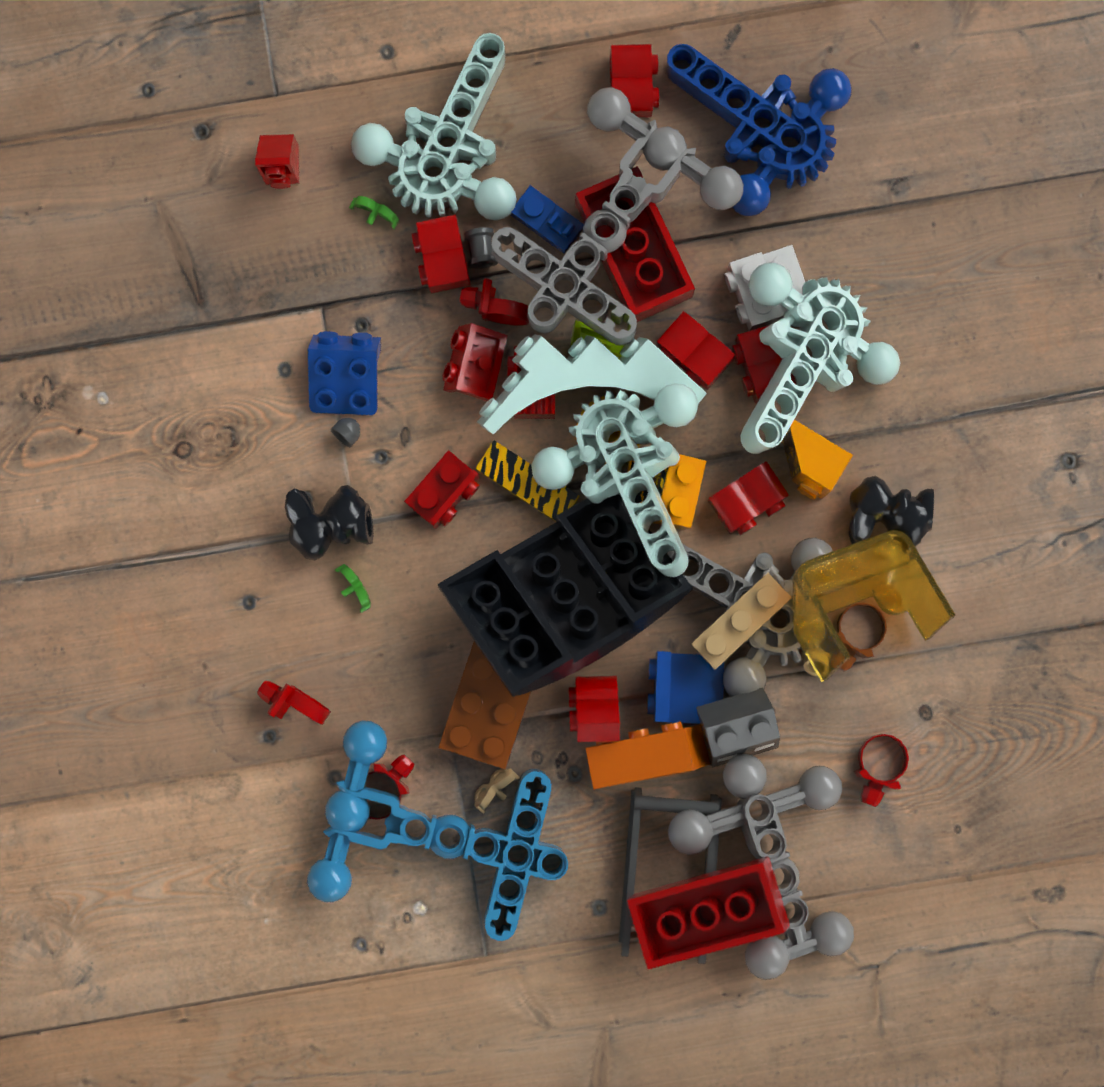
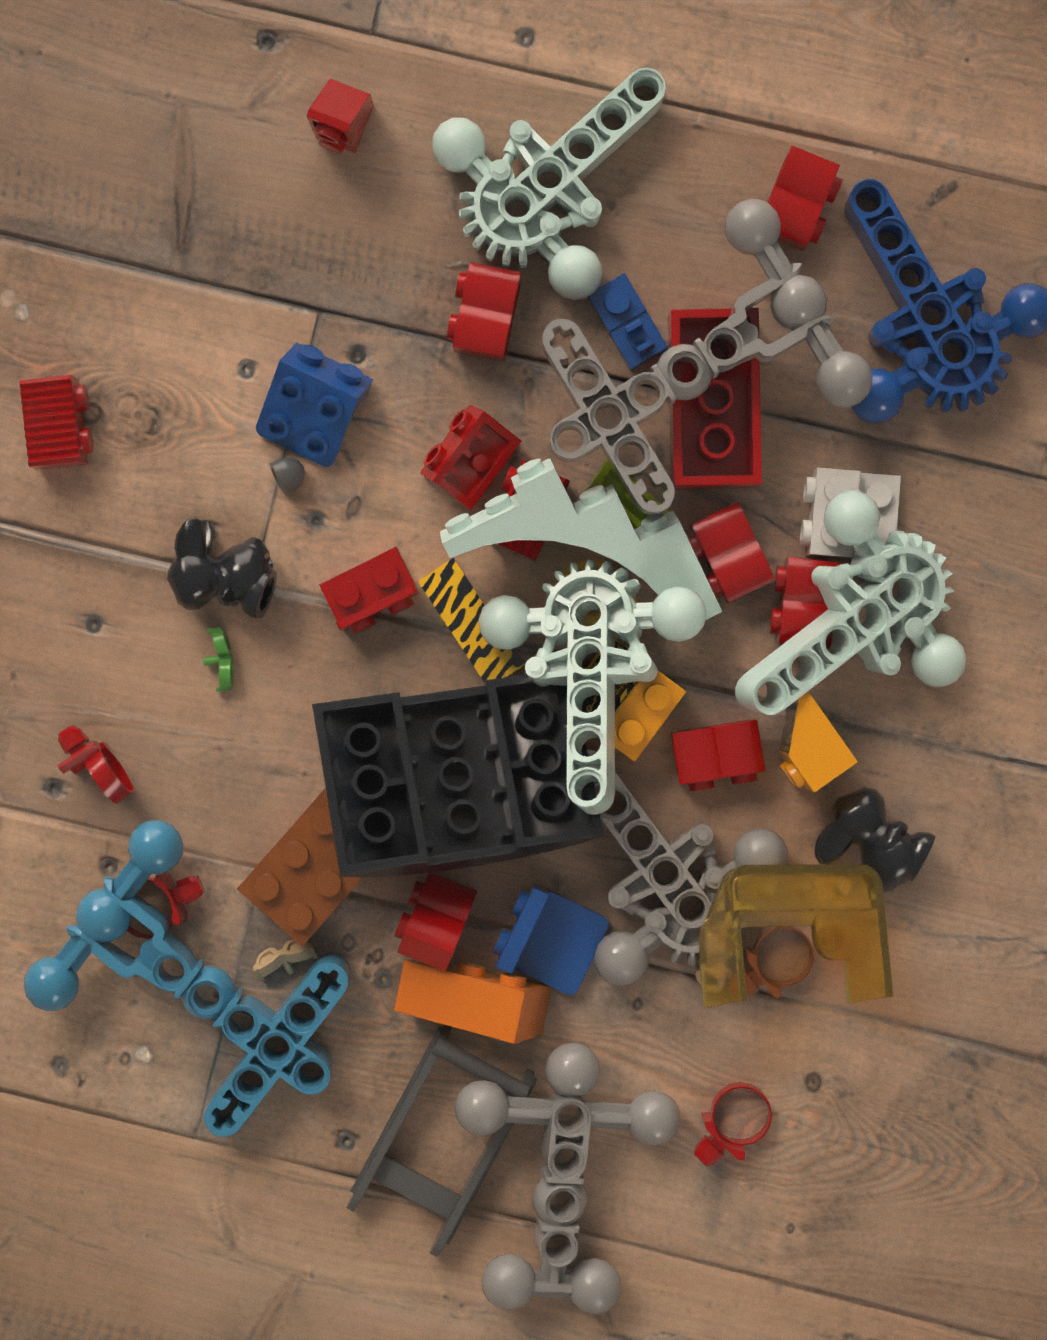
camera: 20 degrees right, 5 degrees up
(160, 465) = (55, 422): none -> red brick
(376, 209) = (432, 224): bright green piece -> none
(480, 247) = (533, 321): dark grey bush -> none
(492, 308) = (515, 403): red piece -> none
(708, 913) = (461, 1210): red brick -> none
(738, 726) = (590, 1009): dark grey slope -> none
(741, 621) = (644, 894): tan plate -> none

